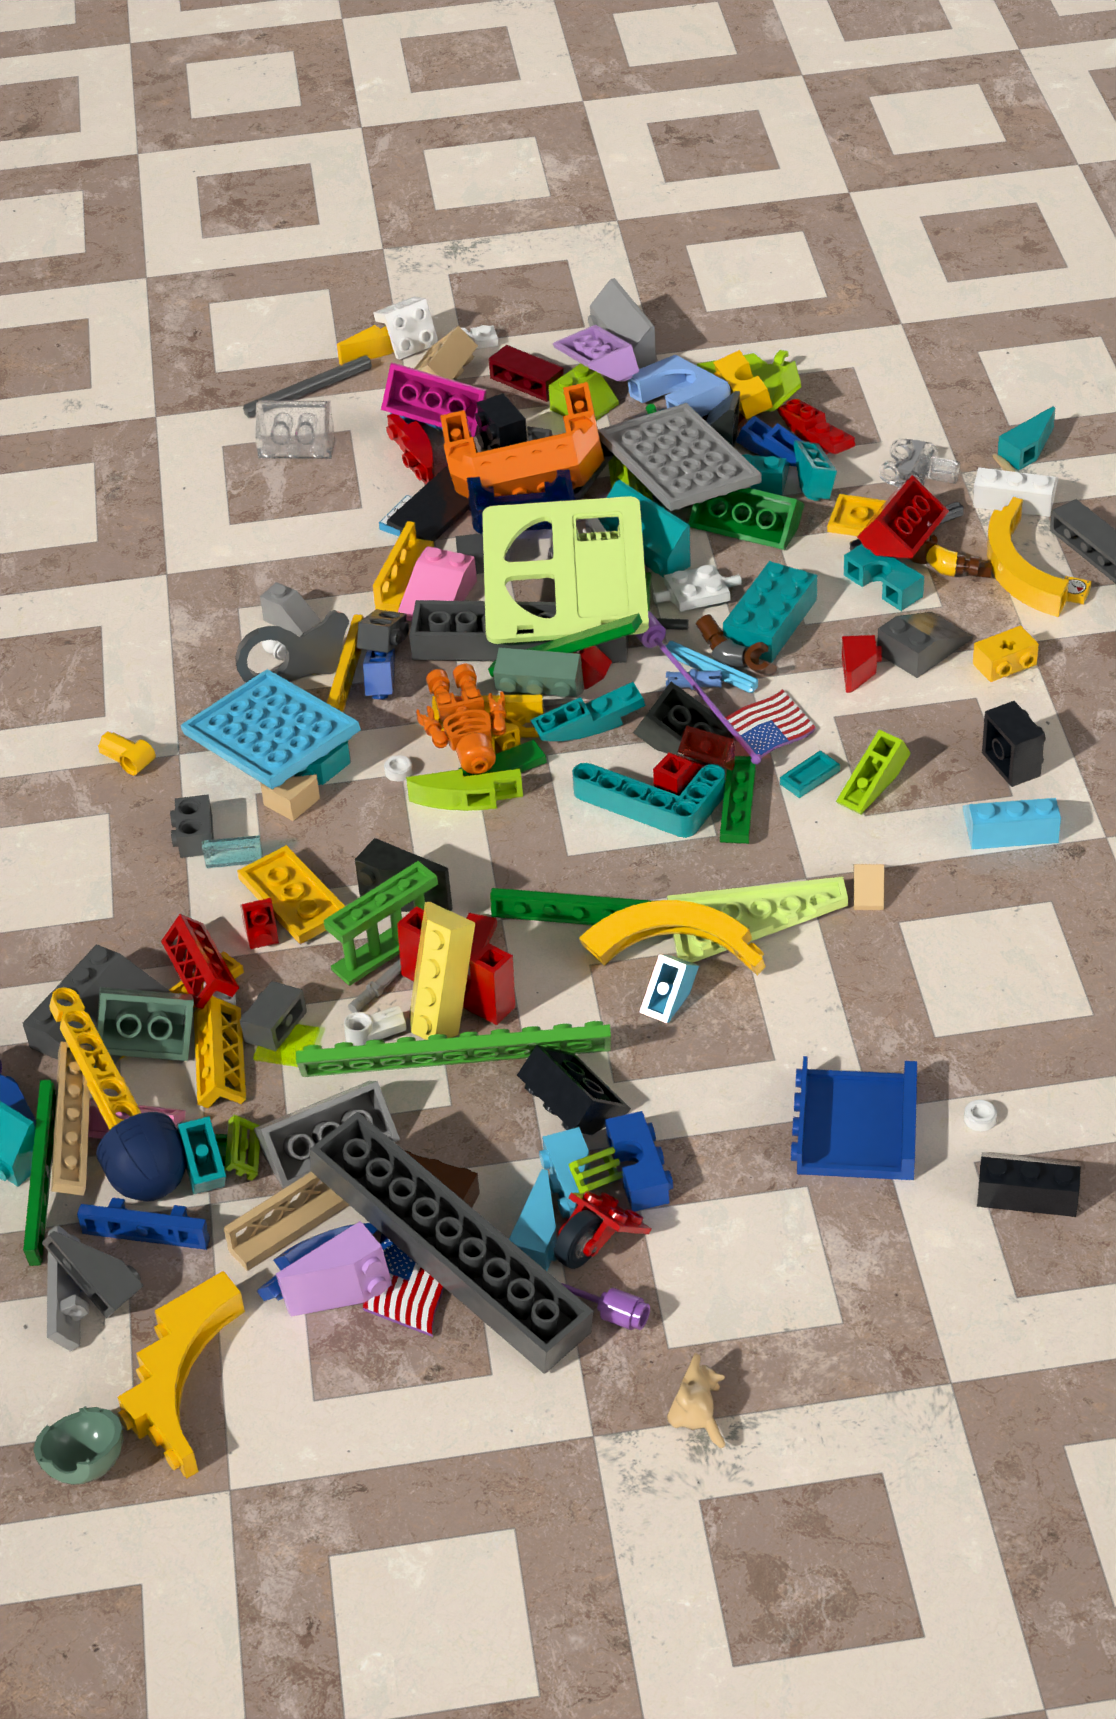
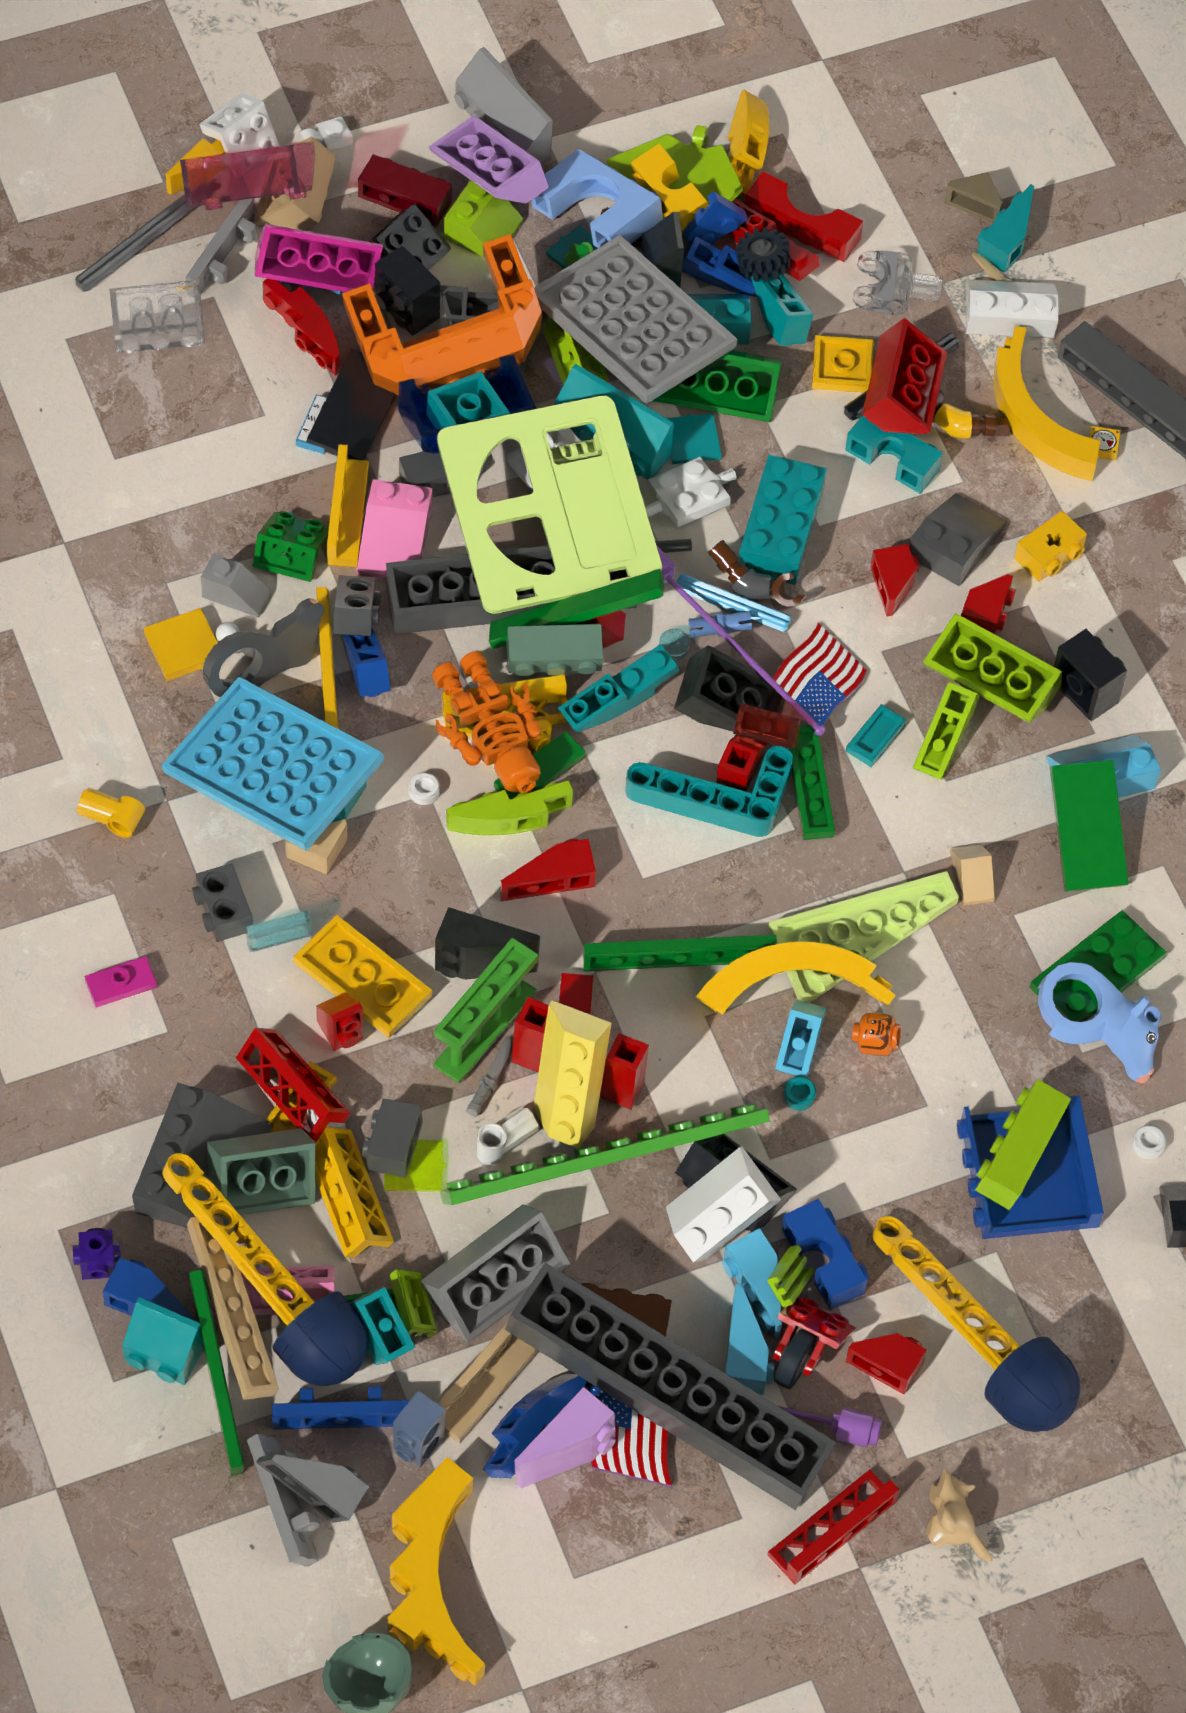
camera: 20 degrees left, 15 degrees up
(86, 874) = (120, 981): none -> dark pink plate
(205, 1243) = (418, 1429): none -> sand blue brick
(223, 647) = (180, 643): none -> yellow tile
(342, 589) = (289, 545): none -> green bracket
(360, 398) = (235, 227): none -> light grey hinge
(395, 343) = (248, 175): none -> clear pink windscreen
(488, 836) = (557, 870): none -> red slope
(517, 492) = (464, 402): none -> teal slope
(526, 399) = (415, 234): none -> black bracket
(547, 1103) = (720, 1206): none -> white slope
(577, 1394) = (838, 1531): none -> red fence
(650, 690) = (675, 643): none -> clear light blue tile
(656, 1033) = (799, 1093): none -> teal tile
(672, 1256) = (888, 1359): none -> red slope
(713, 552) = (694, 438): none -> teal piece
(740, 993) = (877, 1034): none -> orange head
(773, 403) = (716, 220): none -> blue wing
(800, 1283) = (1031, 1383): none -> piece
(805, 428) = (763, 254): none -> black wheel
(818, 364) = (749, 138): none -> yellow slope
(848, 1091) = (1022, 1144): none -> lime brick
(873, 428) = (831, 233): none -> red arch
(929, 730) = (994, 668): none -> lime slope
(935, 690) = (987, 602): none -> red slope
(966, 972) = (1115, 950): none -> green plate
(978, 1016) = (1123, 1025): none -> light blue animal
(983, 854) = (1089, 825): none -> green tile
(1001, 412) = (975, 196): none -> dark tan slope

